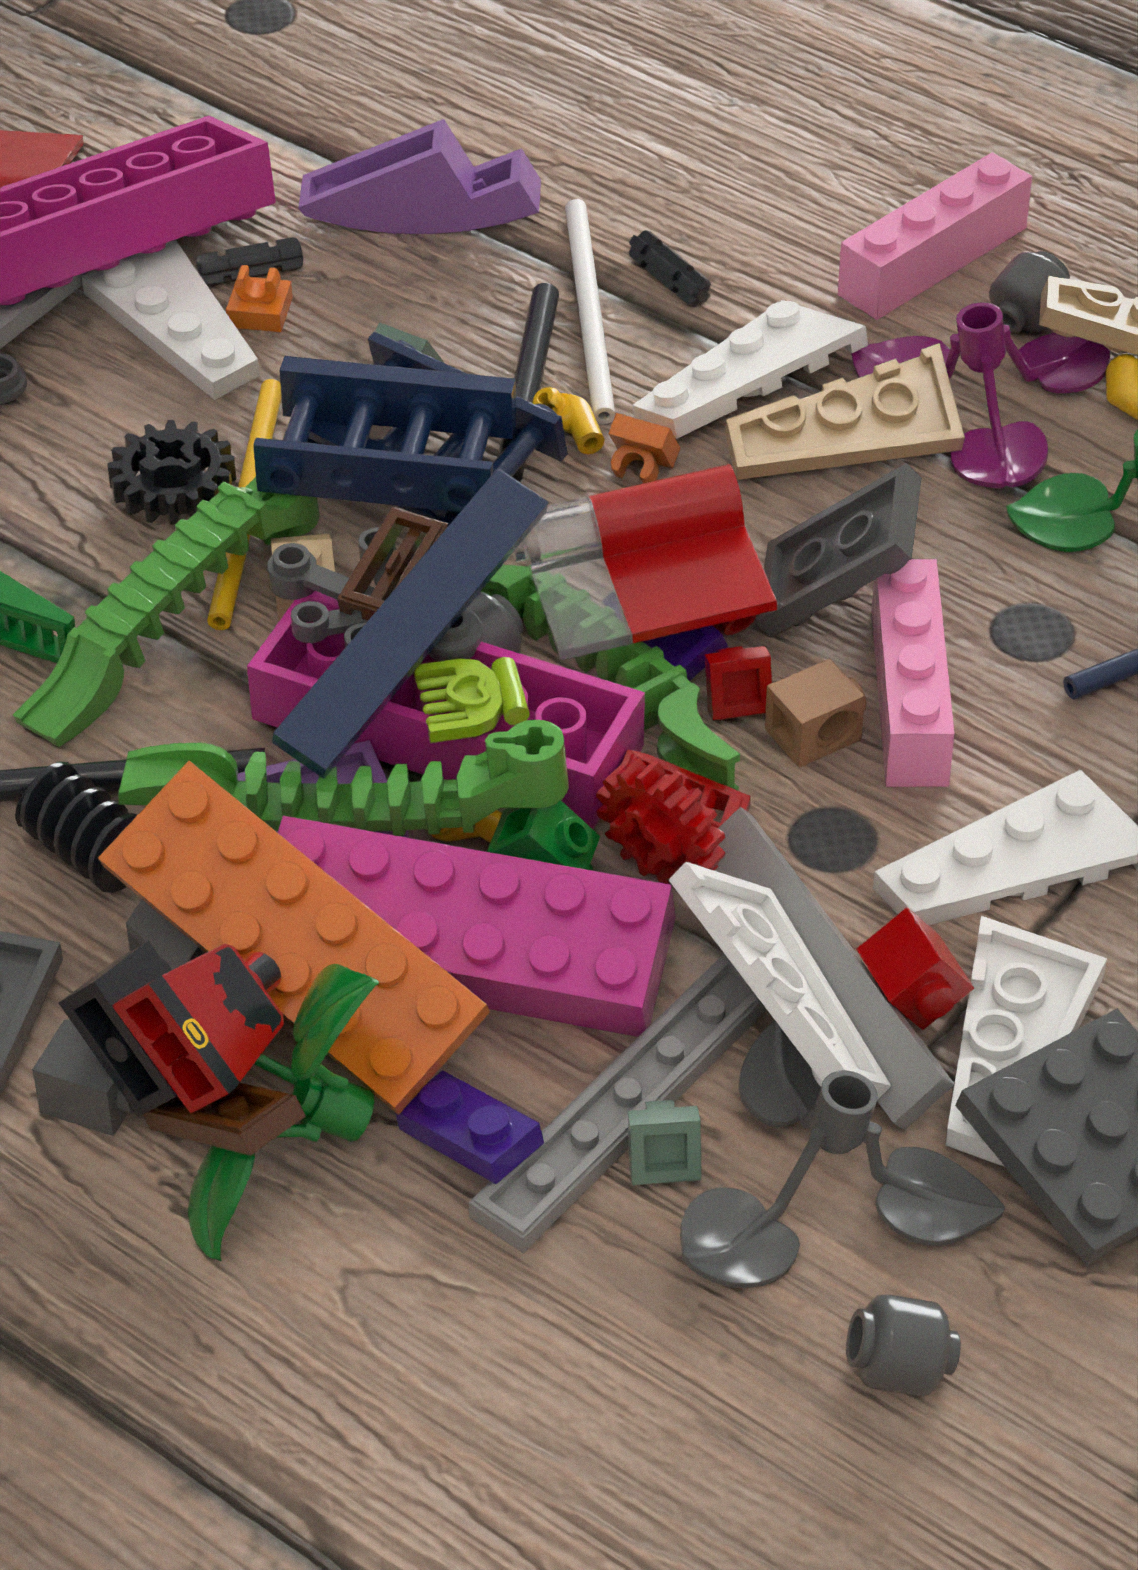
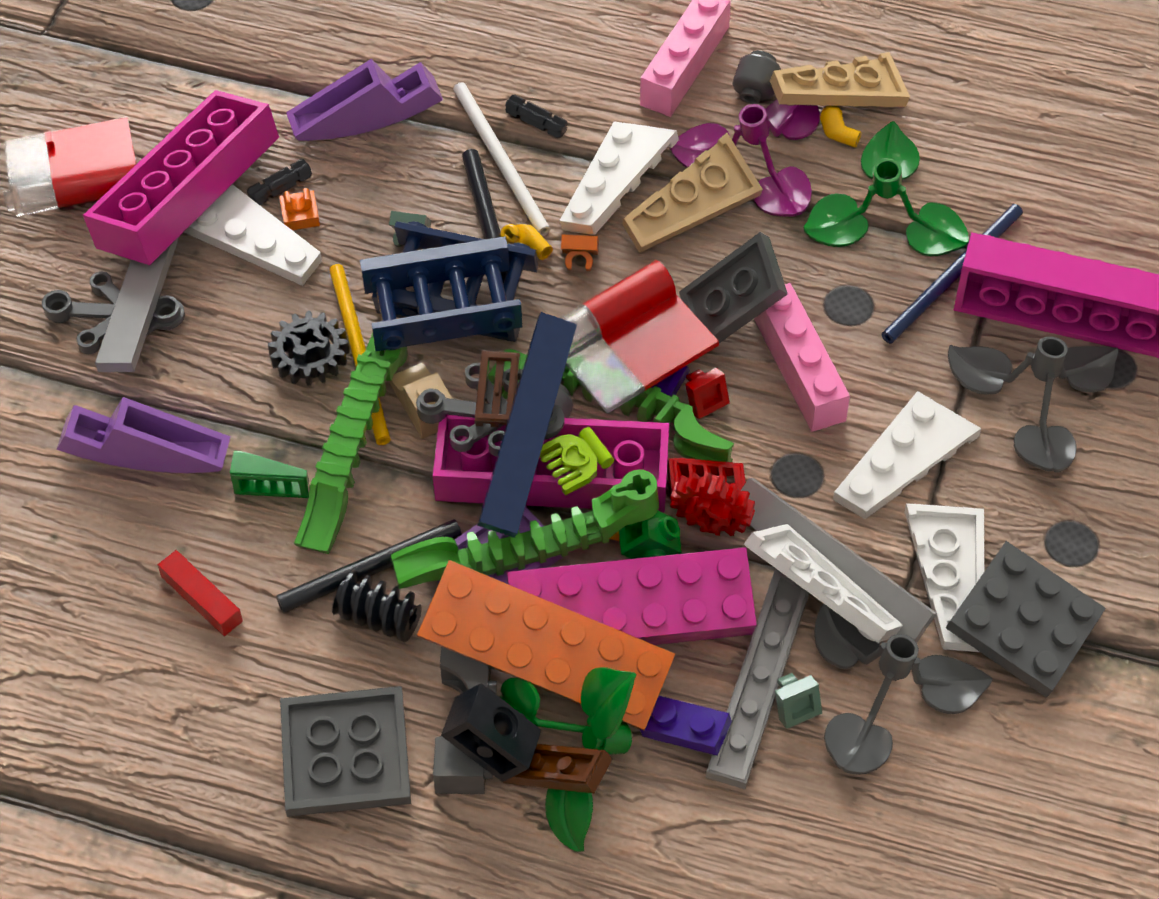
camera: 20 degrees left, 10 degrees up
(206, 1021) = (532, 720): red torso -> none
(815, 712) = (758, 399): medium nougat brick -> none
(902, 1345) = (975, 779): dark grey head -> none
(915, 969) = (887, 550): red brick -> none

